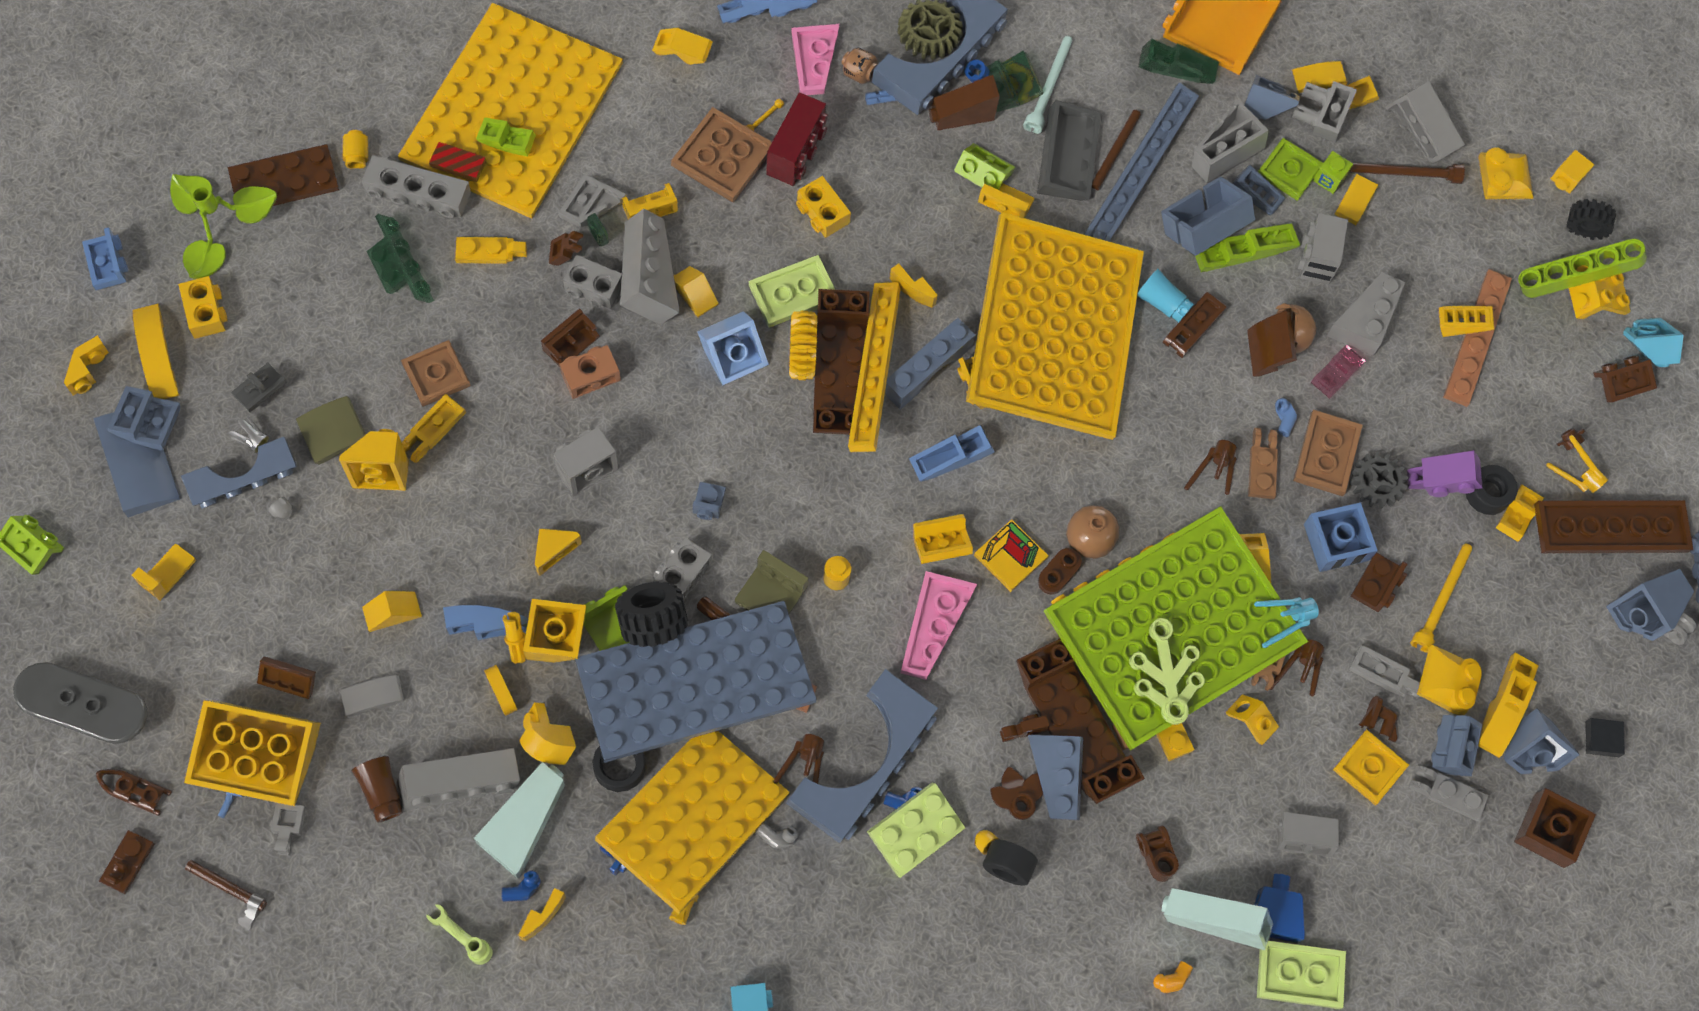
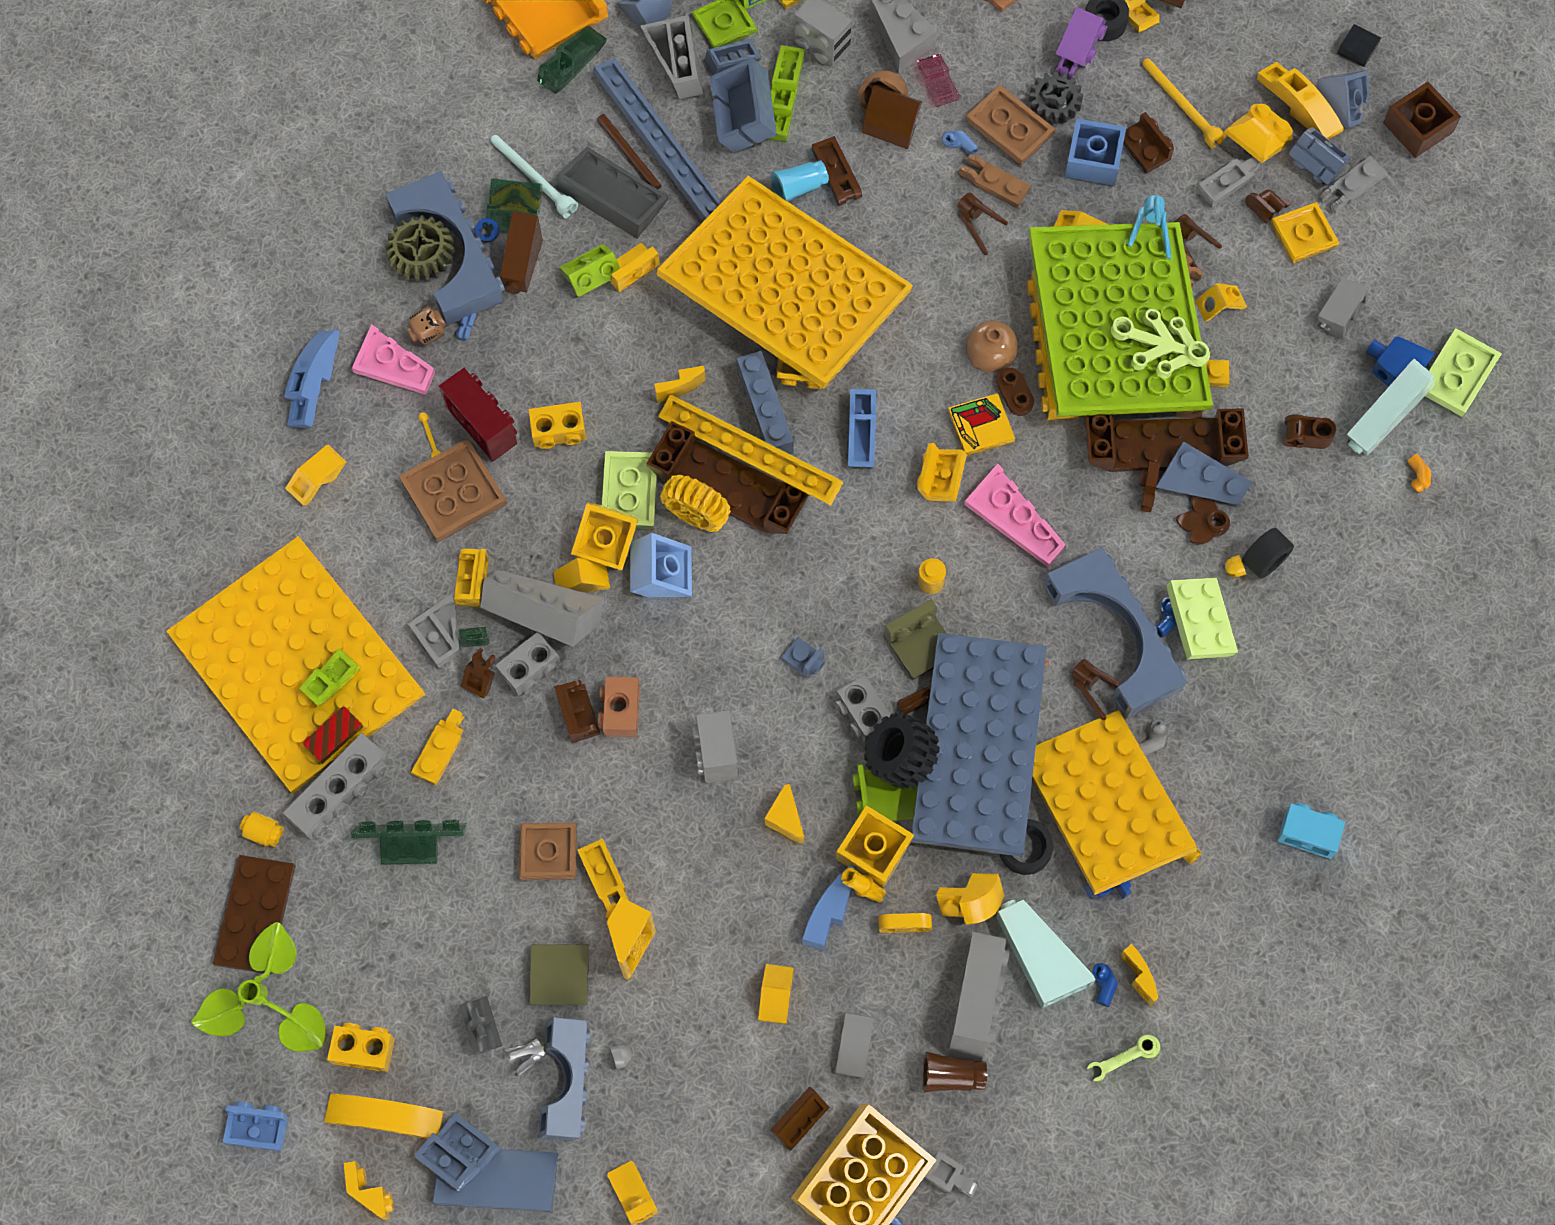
camera: 55 degrees left, 0 degrees up
(736, 286) = (605, 535): none -> yellow slope

